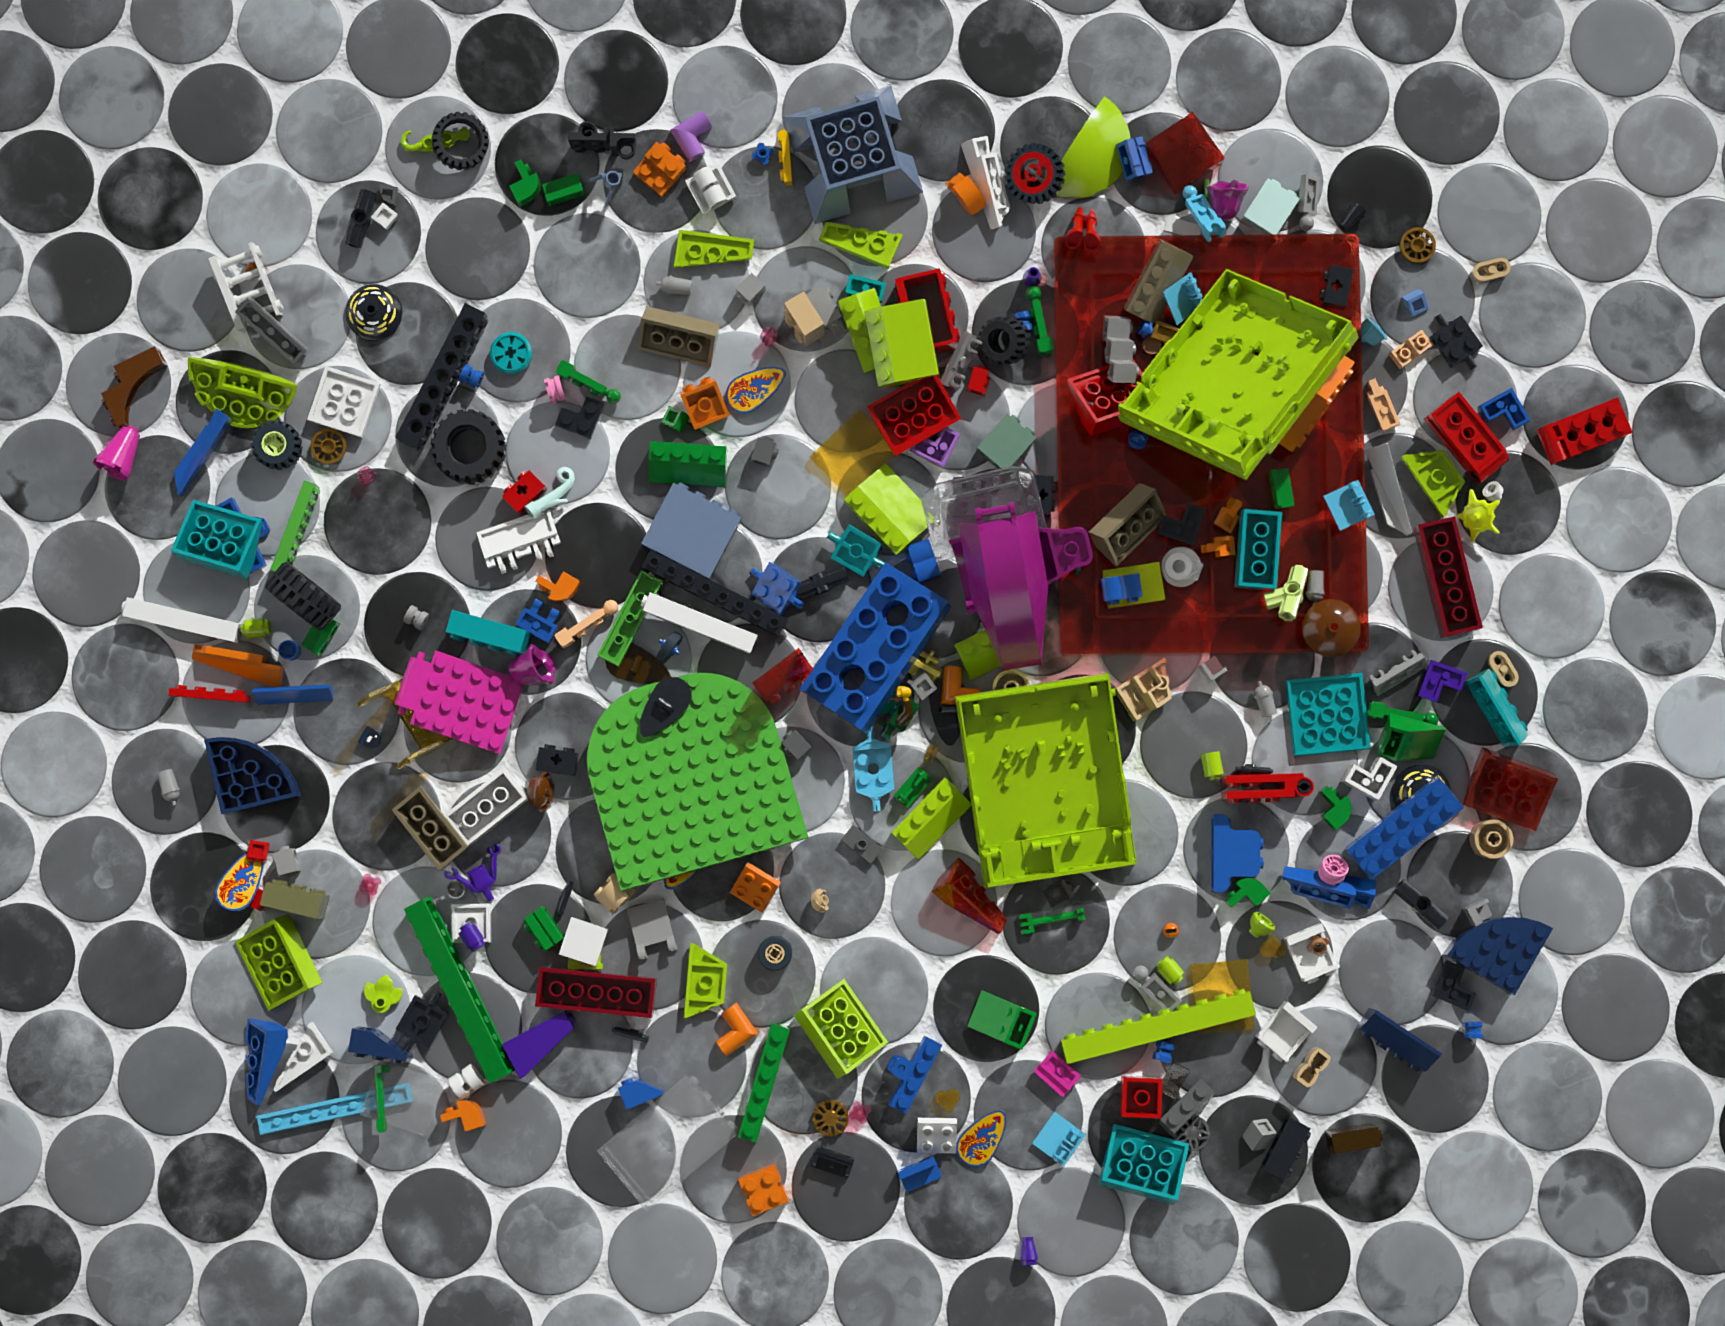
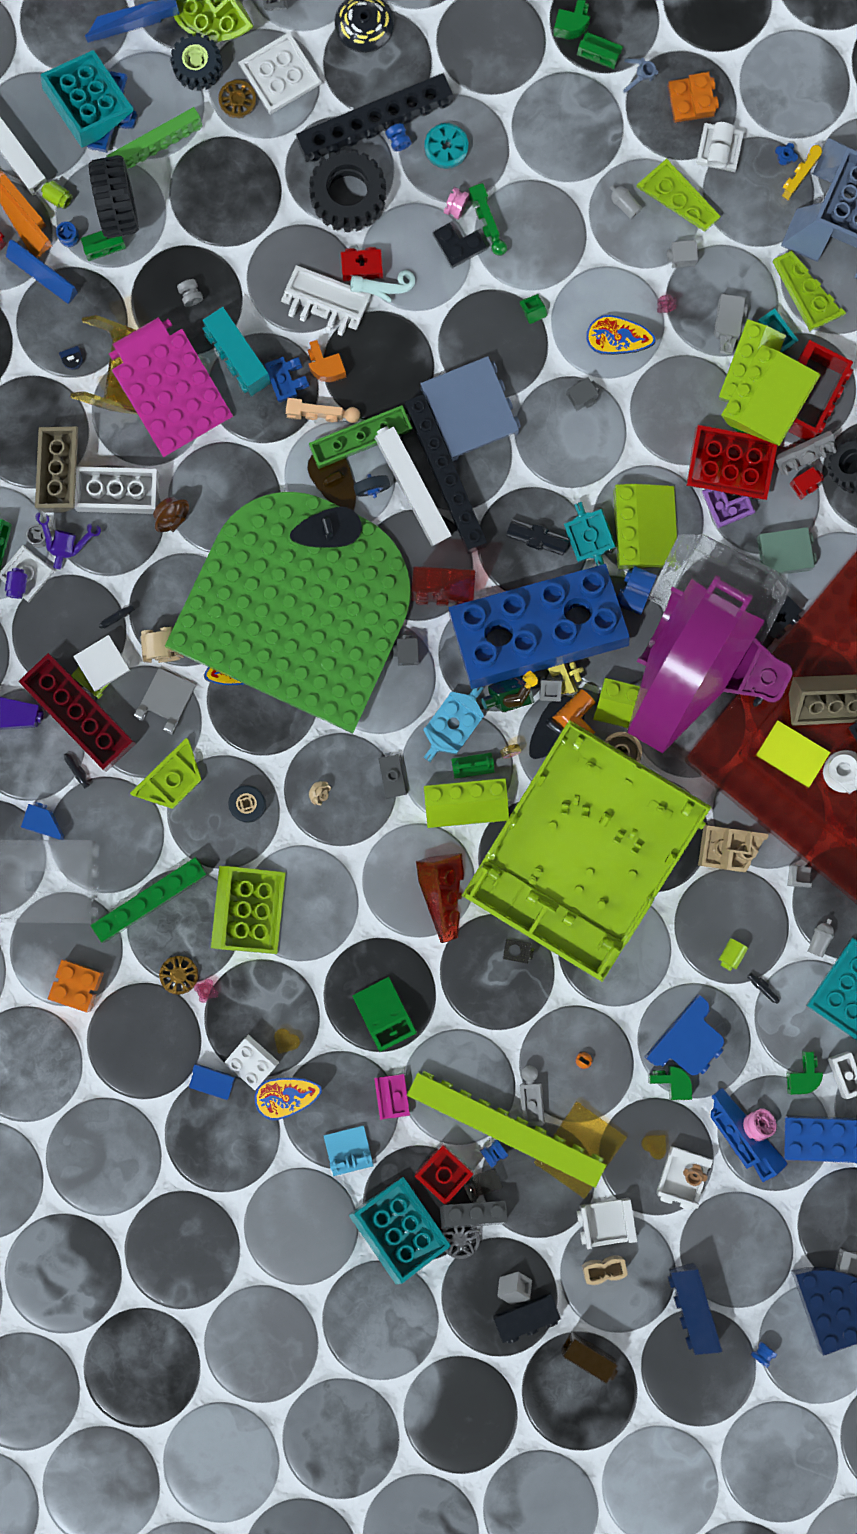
camera: 40 degrees right, 0 degrees up
(365, 475) = (246, 145): clear pink plate -> none
(525, 667) = (244, 404): magenta piece -> none
(543, 928) = (79, 626): green brick -> none
(566, 767) = (196, 492): black brick -> none
(589, 139) = (655, 25): black plate -> none
(678, 336) = (592, 243): dark tan slope -> none
(686, 134) = (741, 86): medium lavender brick -> none
(687, 464) = (512, 351): green slope -> none
(704, 402) = (567, 314): orange plate -> none
(741, 1031) = (167, 843): orange brick -> none
(755, 887) = (276, 737): orange plate -> none
(776, 588) = (498, 511): blue plate -> none
(804, 319) = (706, 312): tan brick -> none
(833, 1162) = (150, 1011): black hinge -> none
(852, 453) = (654, 455): clear yellow piece -> none
(912, 1073) = (275, 995): blue plate -> none
(1028, 1252) = (244, 1221): dark purple cone -> none
(1078, 914) = (475, 957): green hinge -> none
(1121, 588) = (781, 747): blue brick -> none
(1170, 970) = (555, 1092): lime brick -> none
(1260, 925) = (661, 1119): lime brick -> none
(1287, 784) = (779, 1026): red hinge -> none
(1429, 912) = (806, 1201): black piece -> none
(1448, 989) = (772, 1303): black plate -> none

